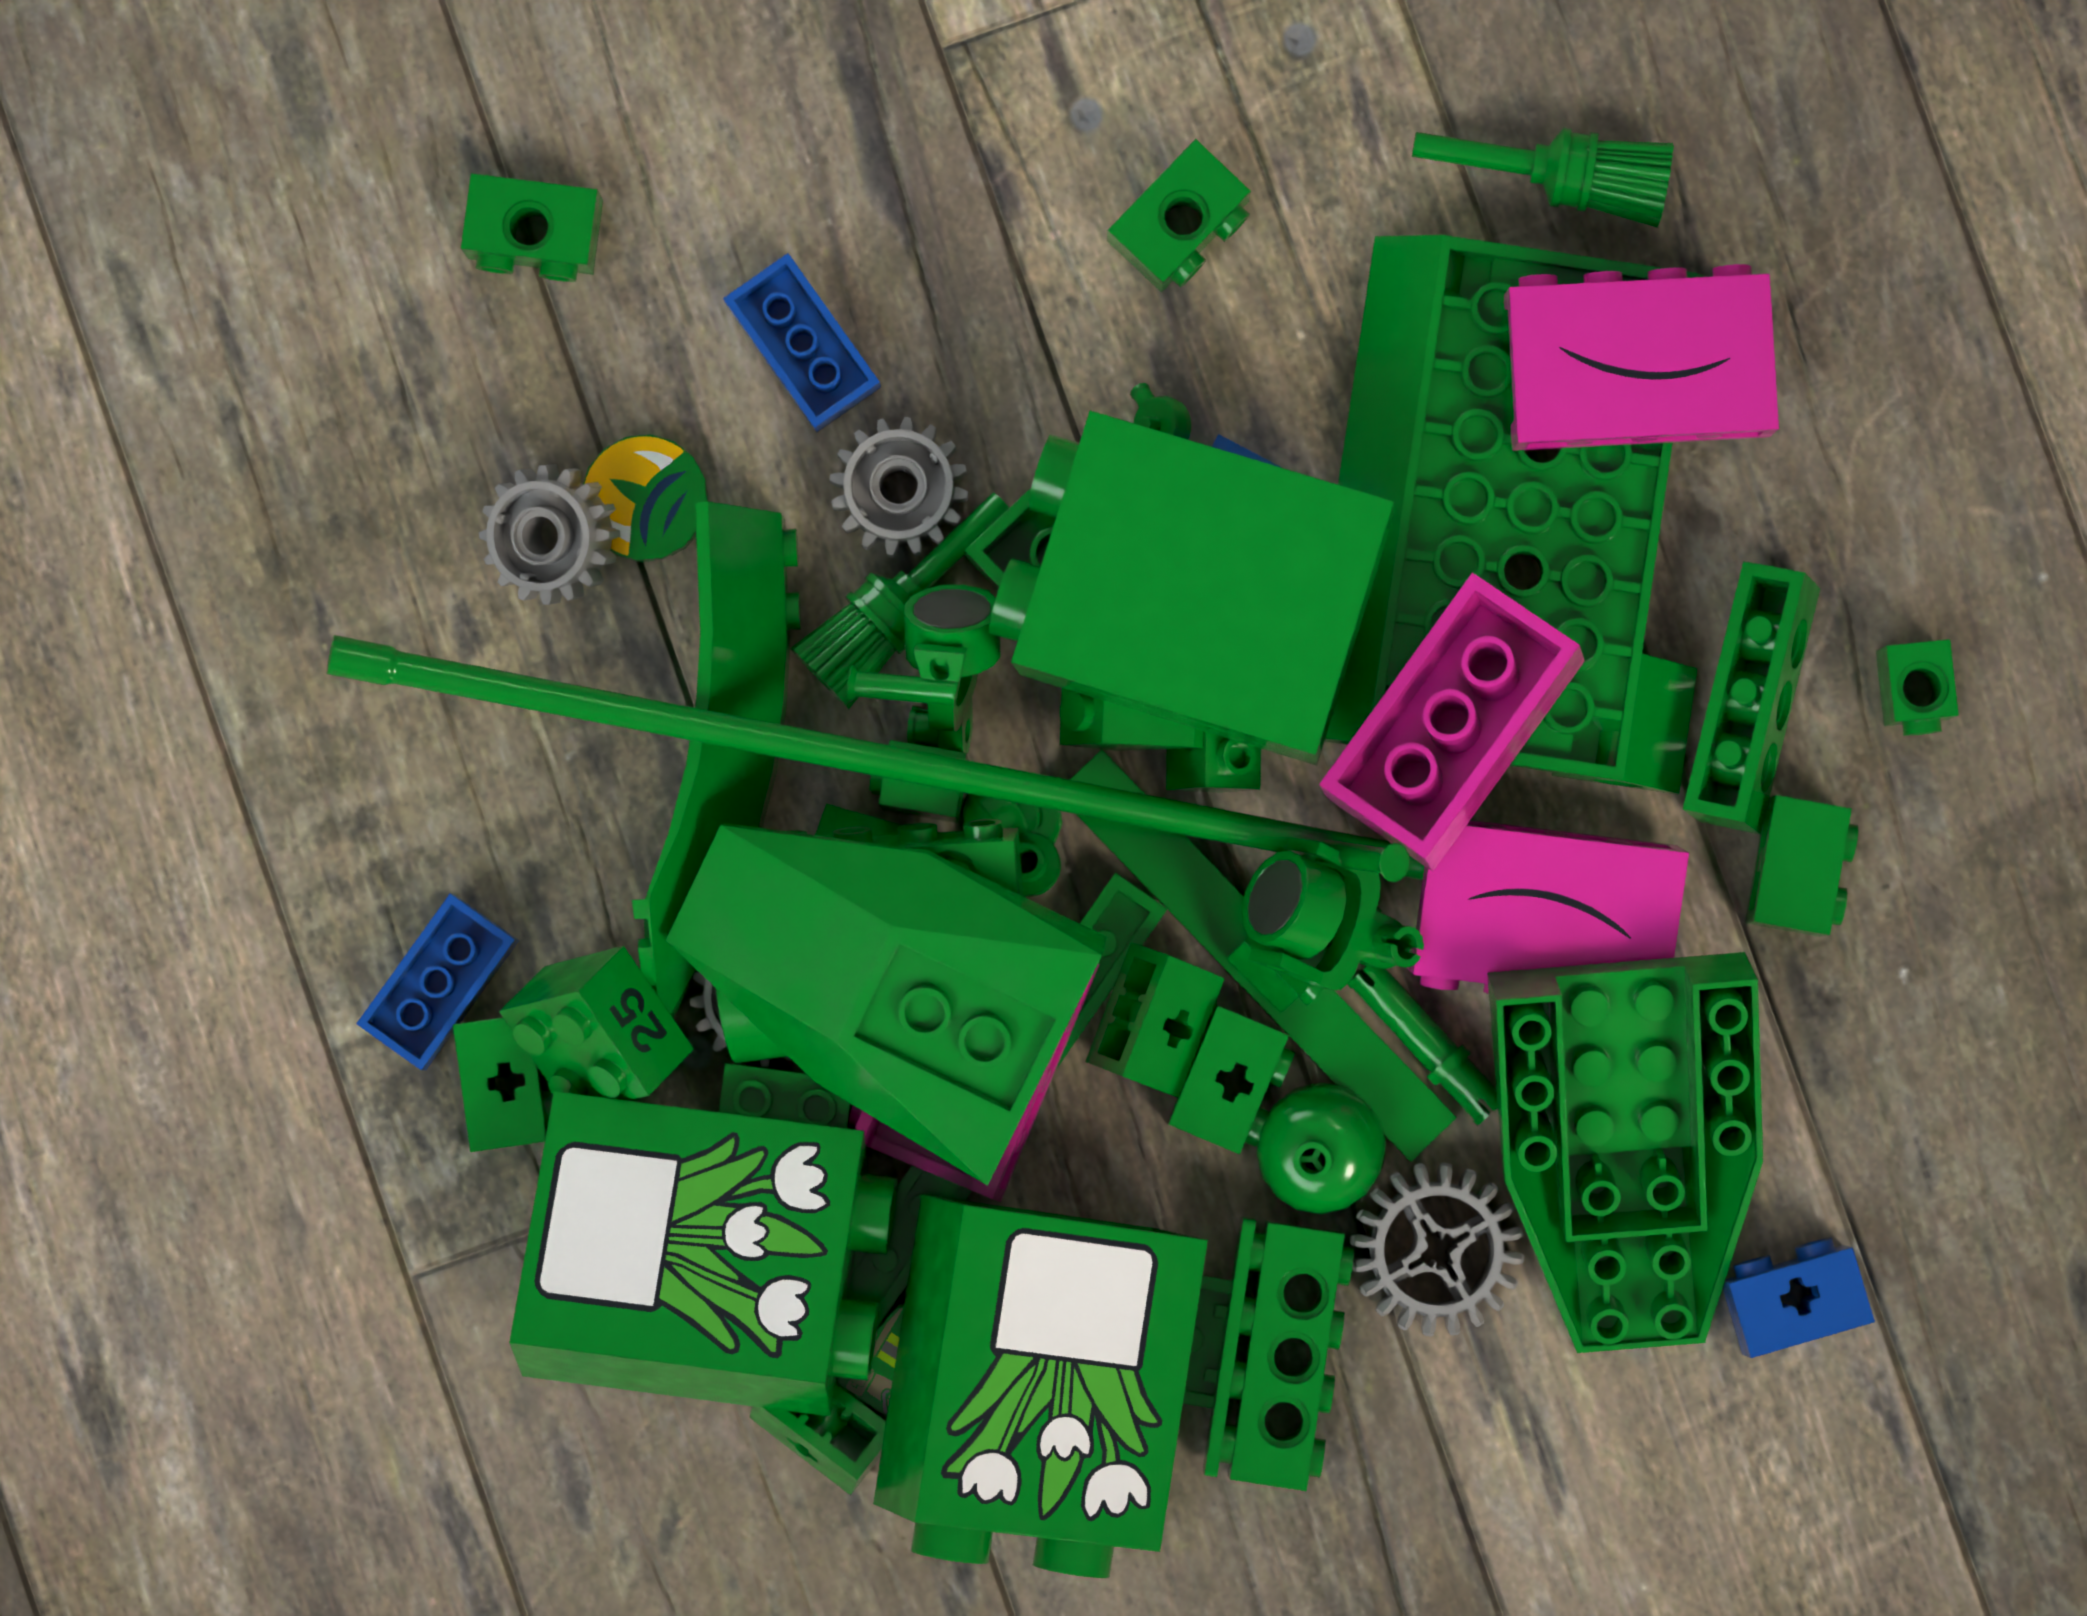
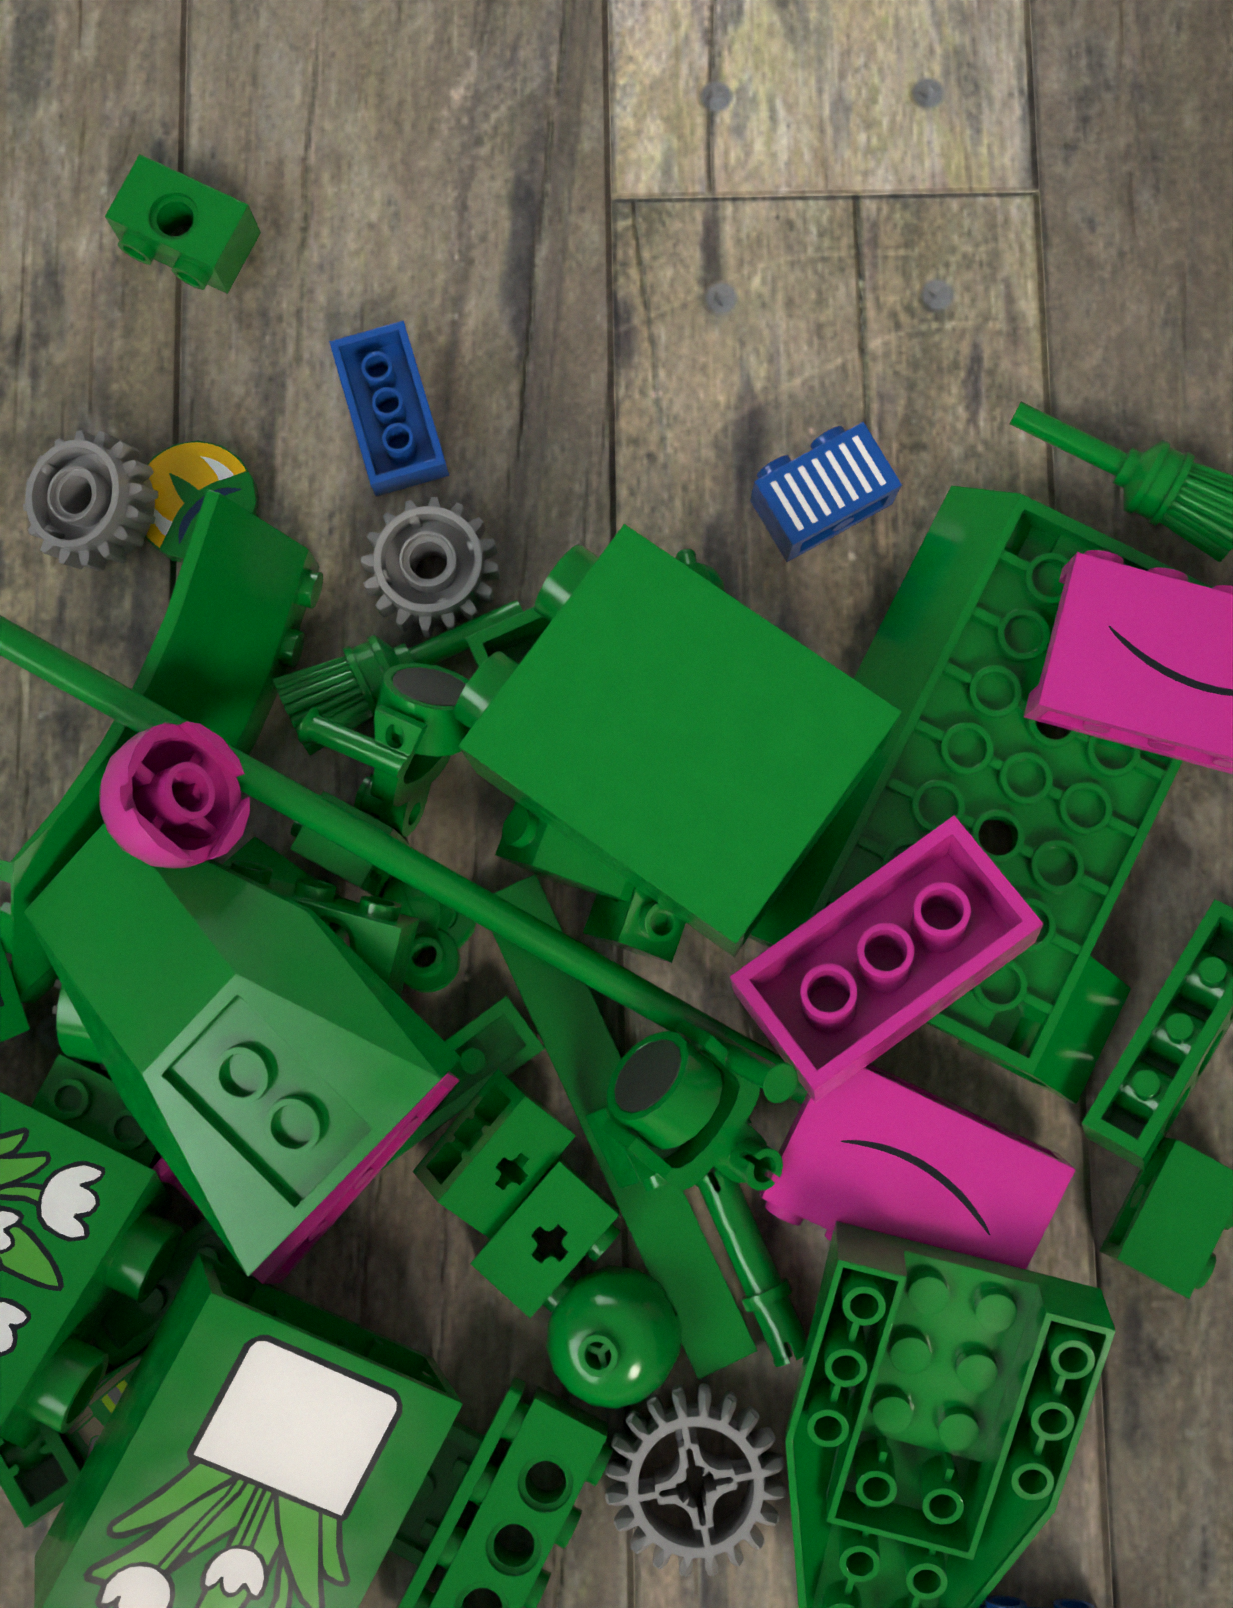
camera: 15 degrees right, 5 degrees down
(781, 792) = (174, 796): none -> dark pink cylinder
(1192, 181) = (797, 379): green brick -> none
(1252, 284) = (823, 489): none -> blue brick

